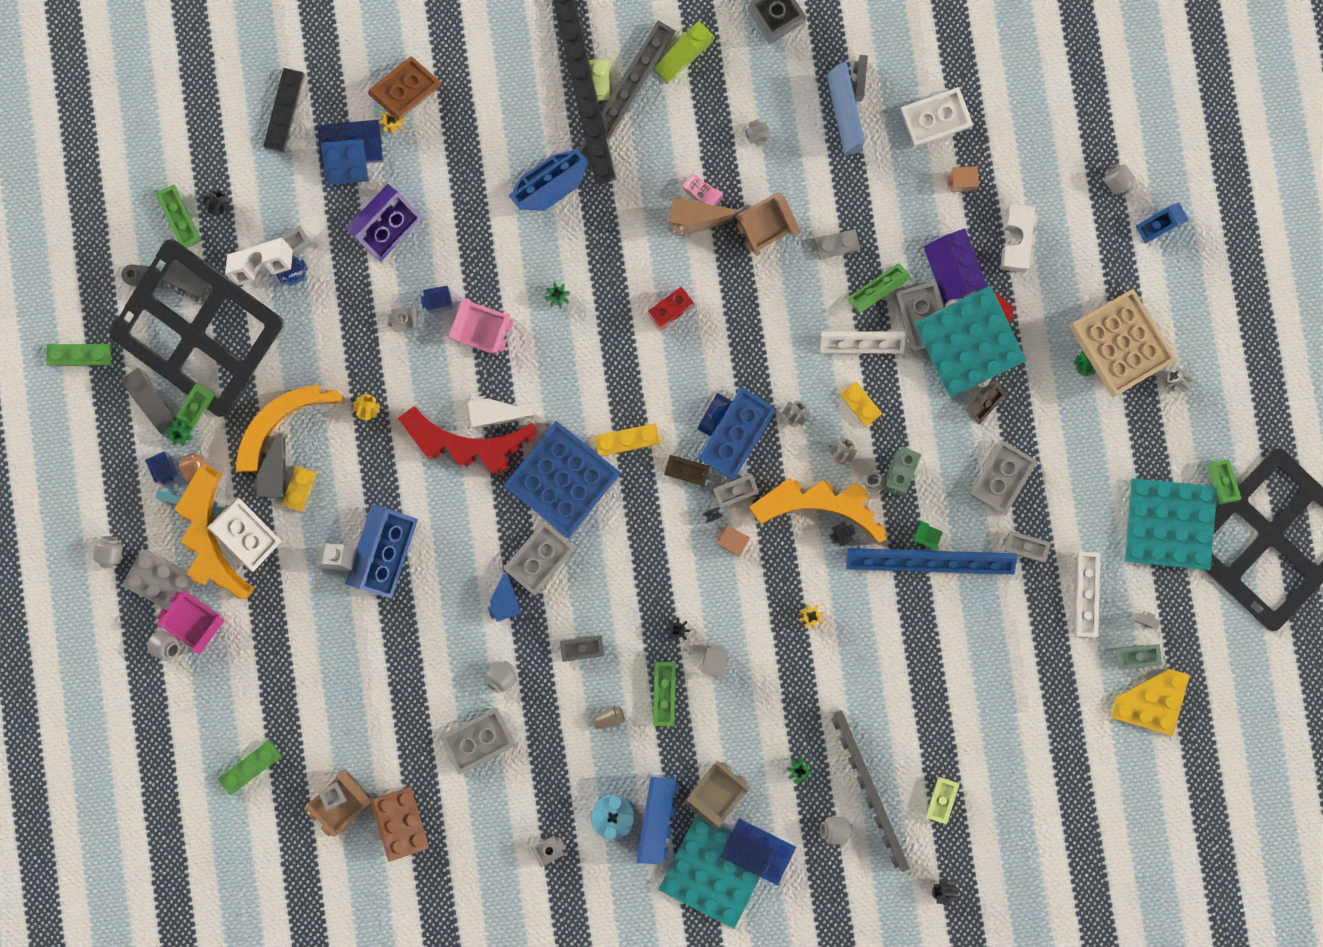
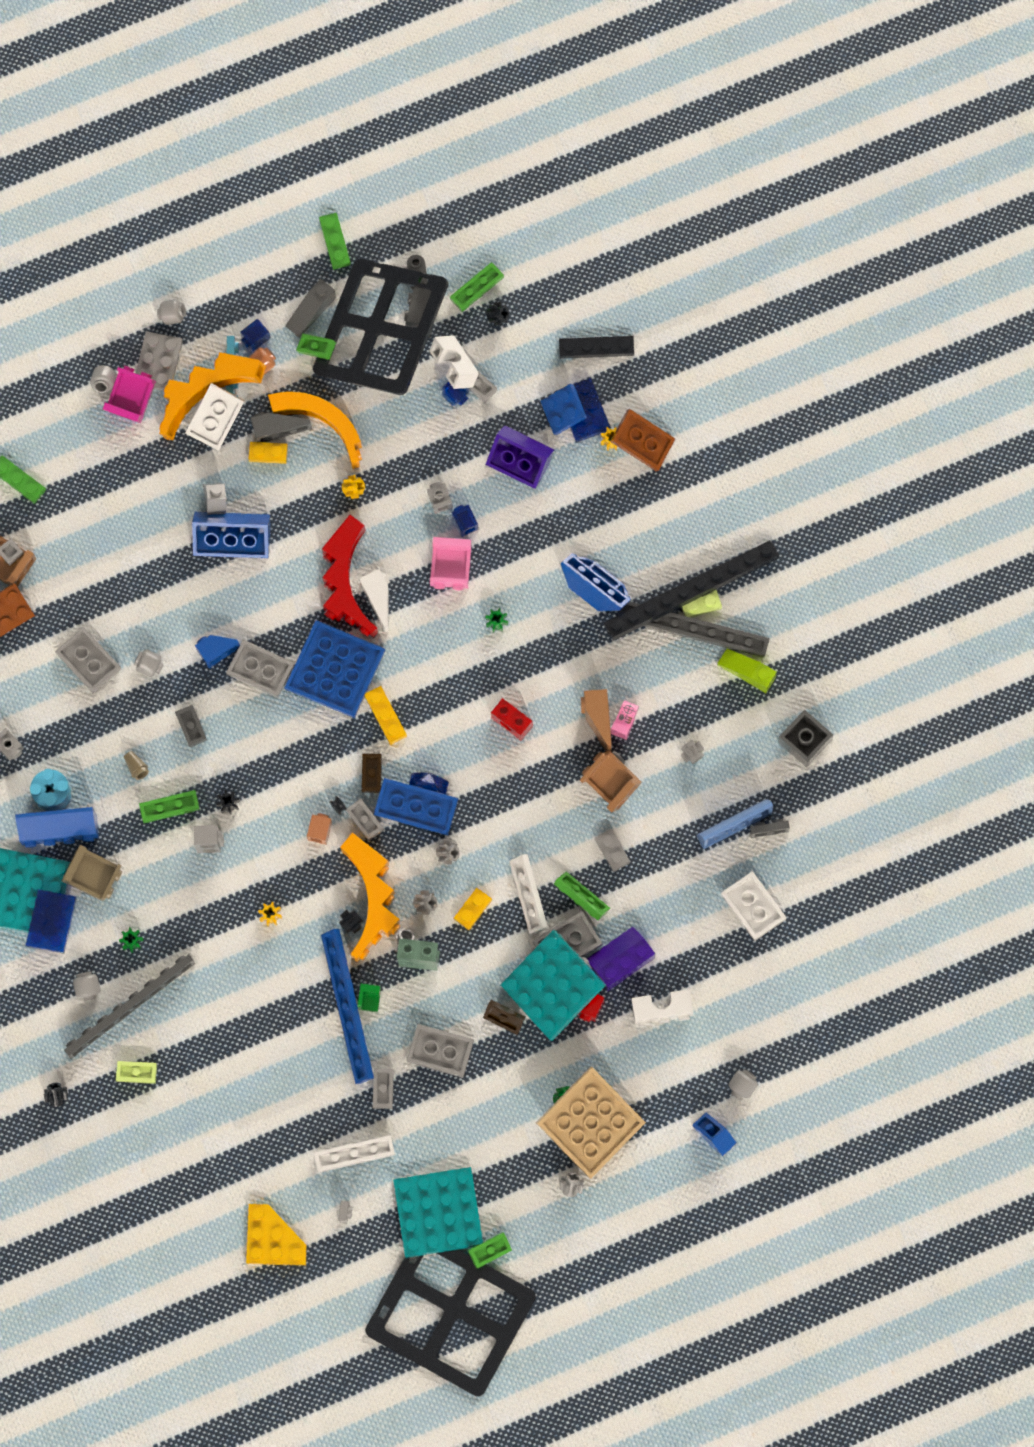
camera: 80 degrees right, 10 degrees down
(185, 432) = (289, 340): green gear -> none
(963, 179) = (702, 944): nougat brick -> none
(1139, 656) = (309, 1214): sand green plate -> none

